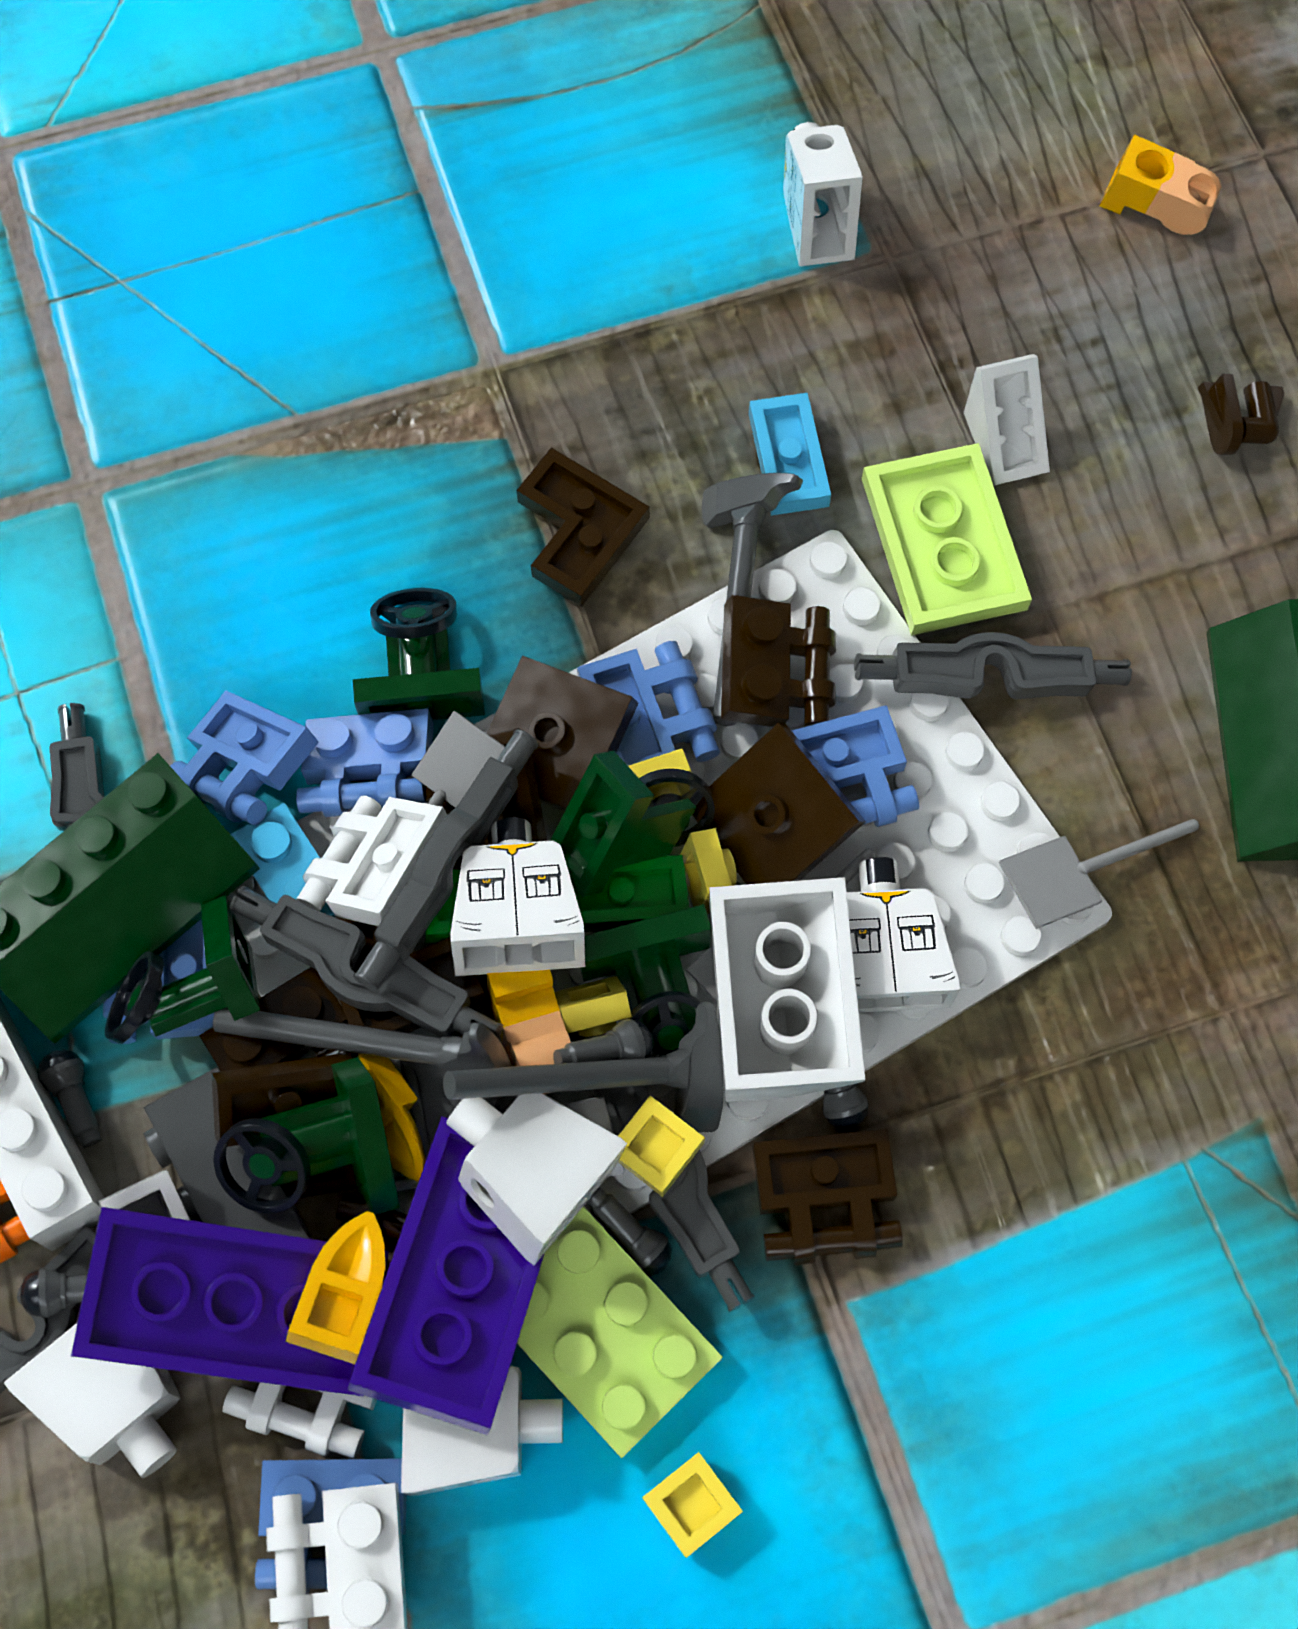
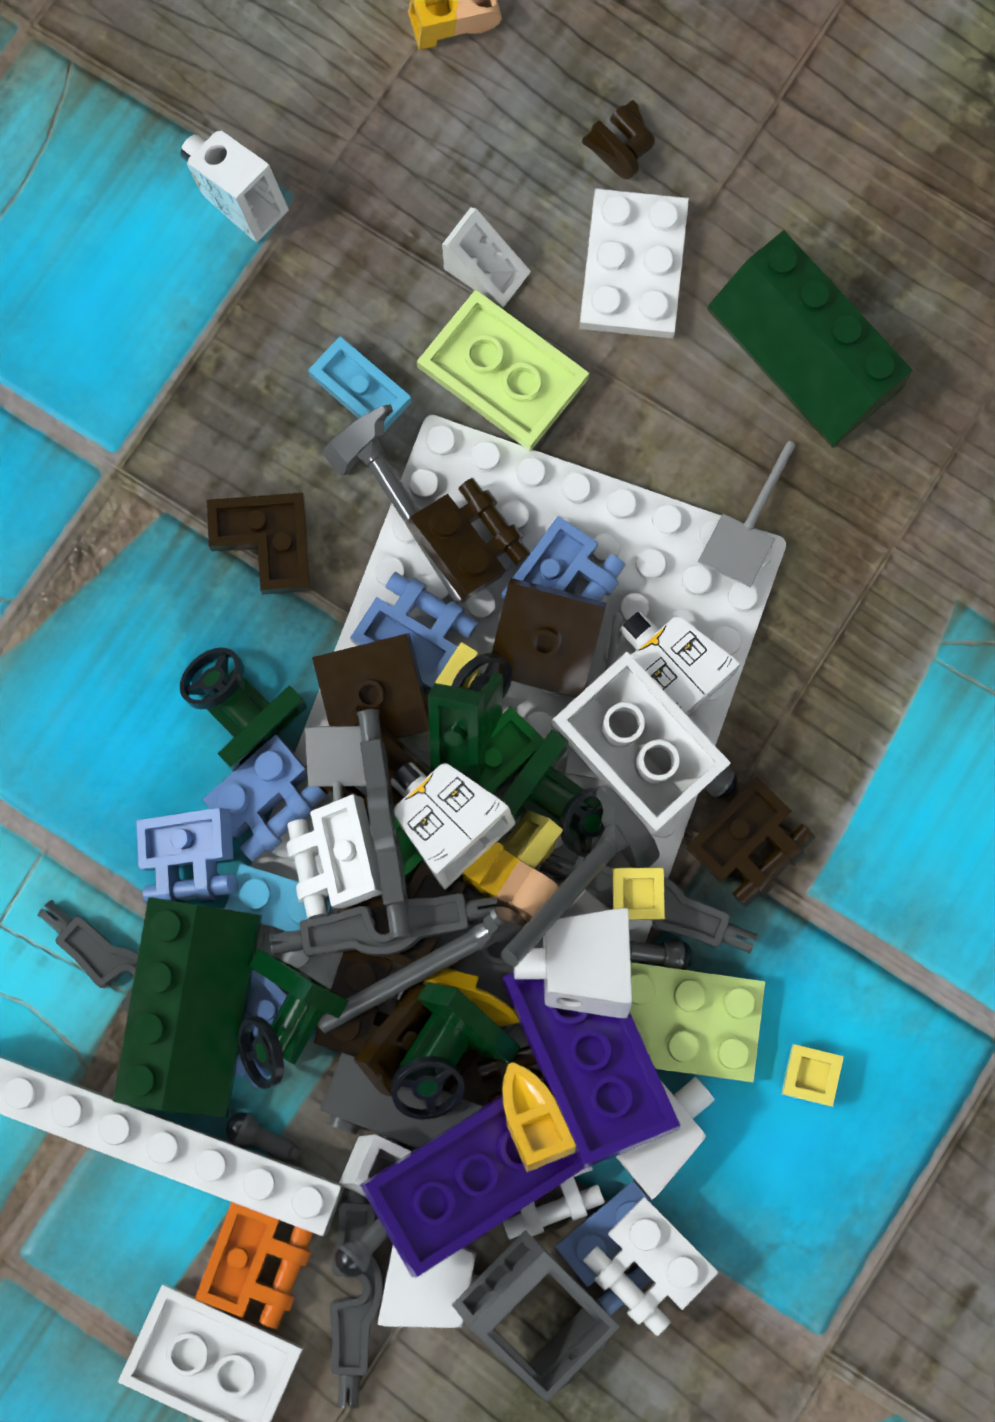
camera: 35 degrees left, 10 degrees up
(155, 1451) = (505, 1286): none -> dark grey window
(625, 1041) = (573, 849): dark grey piece -> none
(706, 866) = (534, 704): light yellow plate -> none
(959, 667) = (581, 454): dark grey piece -> none
(1162, 536) = (634, 263): none -> white plate

